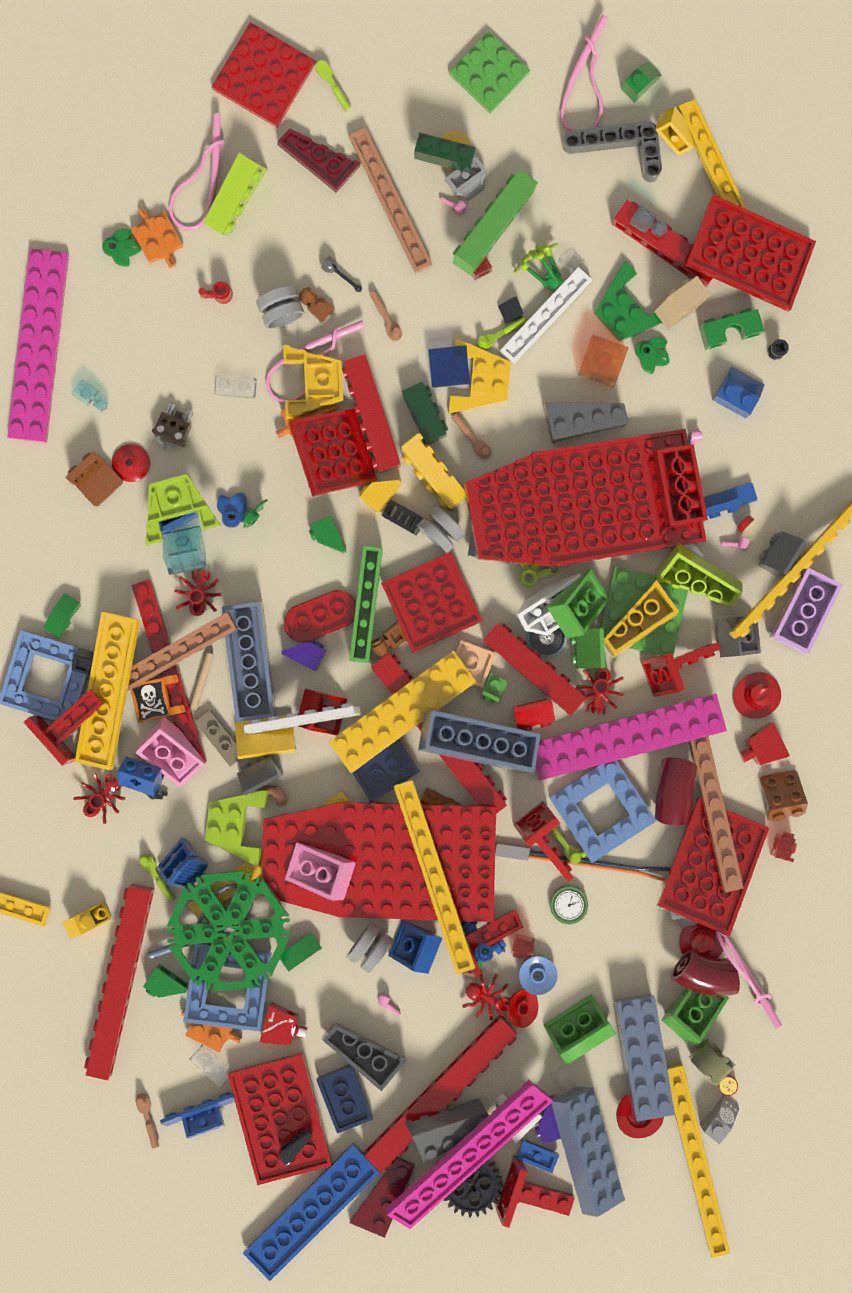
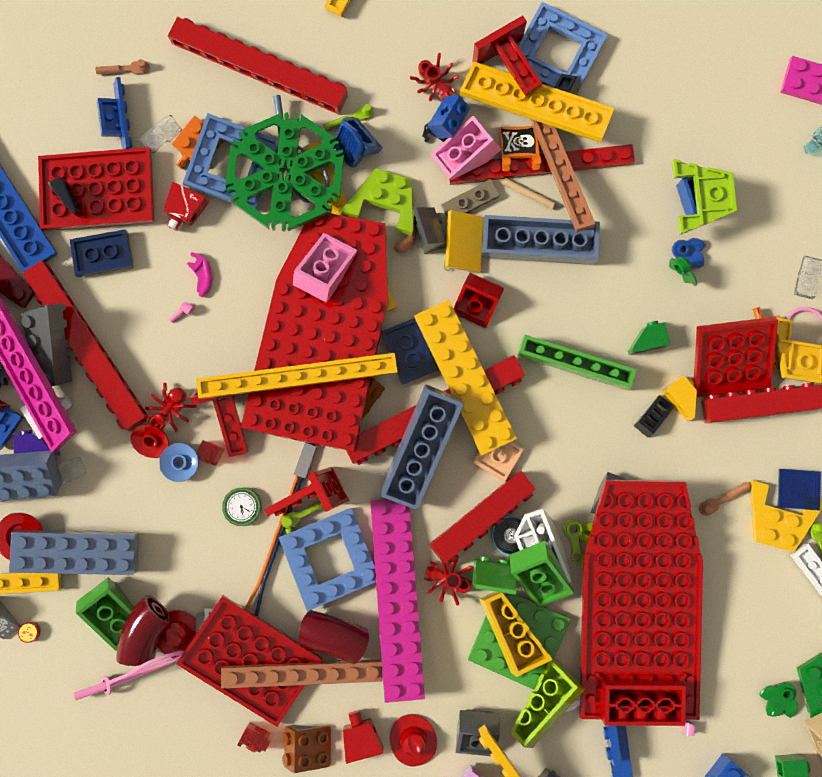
camera: 100 degrees right, 5 degrees down
(61, 614) = (614, 73): green slope -> none
(86, 920) = (322, 46): yellow slope -> none
(94, 478) = (741, 127): dark orange bracket -> none
(140, 464) = (743, 171): red dish -> none
(164, 983) = (248, 105): green slope -> none
(170, 433) = (777, 210): dark brown piece -> none
(184, 550) = (657, 198): clear light blue slope -> none
(197, 596) = (611, 203): red animal -> none
(293, 719) = (477, 268): white plate -> none
(300, 952) = (250, 236): green slope -> none
(307, 654) = (536, 297): dark purple slope -> none
(320, 616) = (570, 316): red tile -> none
(344, 991) = (203, 272): none -> dark pink piece
(366, 1056) = (137, 279): dark grey wedge -> none
(371, 949) = (239, 303): light grey wheel -> none
(392, 638) = (537, 382): dark orange plate -> none
(415, 947) = (231, 347): blue slope -> none
(425, 413) = (755, 456): dark green brick -> none
(431, 602) = (566, 427): red plate -> none
(433, 473) = (696, 452): yellow wedge -> none
(443, 527) = (640, 451): light grey wheel -> none
(483, 952) = (212, 411): blue plant -> none
(493, 688) = (469, 472): bright green bracket -> none
(534, 714) = (437, 508): red slope -> none
(578, 419) = (726, 615): dark grey wedge -> none
(579, 1029) = (116, 493): bright green slope -> none
(603, 361) = (782, 647): clear orange brick -> none
(663, 670) = (457, 648): red piece -> none
(712, 1061) = (53, 620): olive brick -> none
(741, 544) = (569, 755): bright pink hand -> none
(745, 523) = (591, 763): red tile -> none

